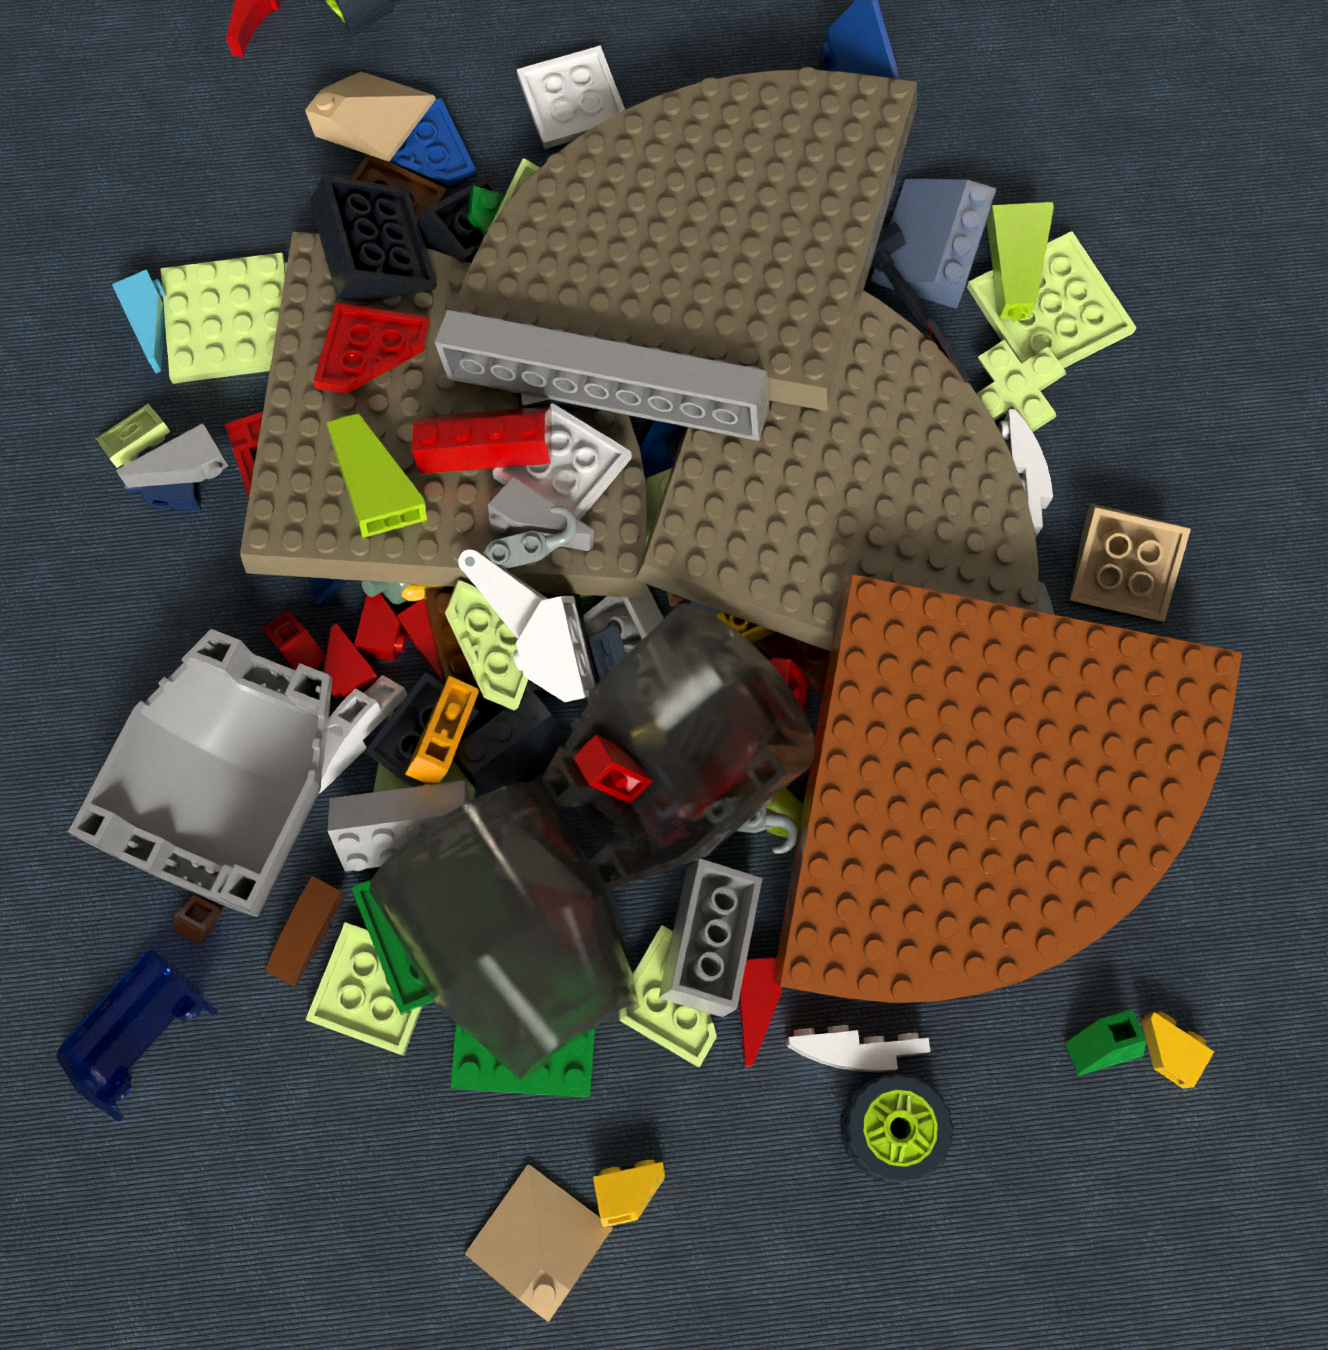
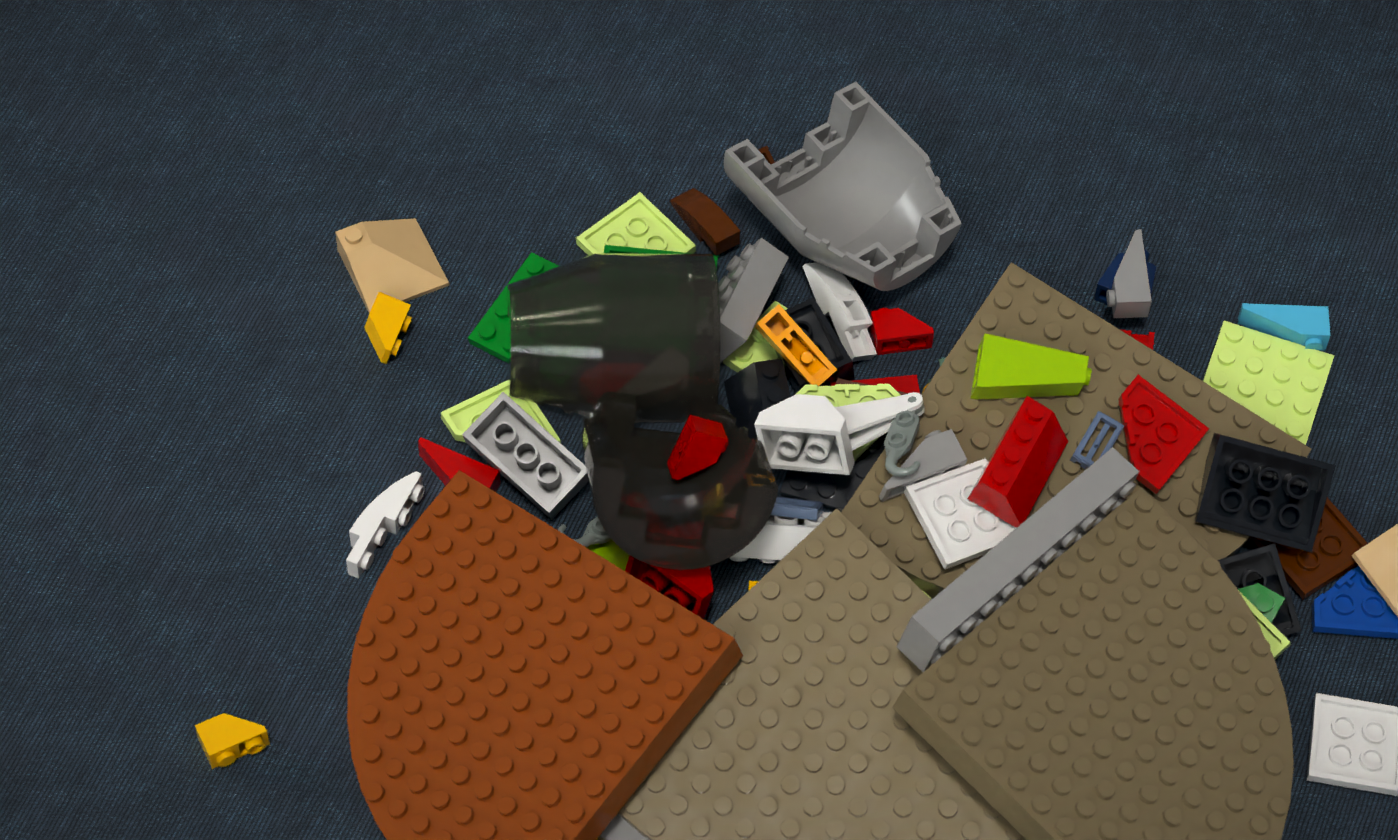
camera: 120 degrees right, 15 degrees down
(124, 1027) = (702, 81): clear blue windscreen -> none
(133, 435) = (1179, 269): yellowish green plate -> none
(294, 641) = (937, 304): red slope -> none
(379, 631) = (912, 359): red slope -> none
(406, 397) = (1086, 461): none -> sand blue tile
(924, 1125) = (308, 510): wheel -> none
(1107, 1043) = (266, 693): green slope -> none

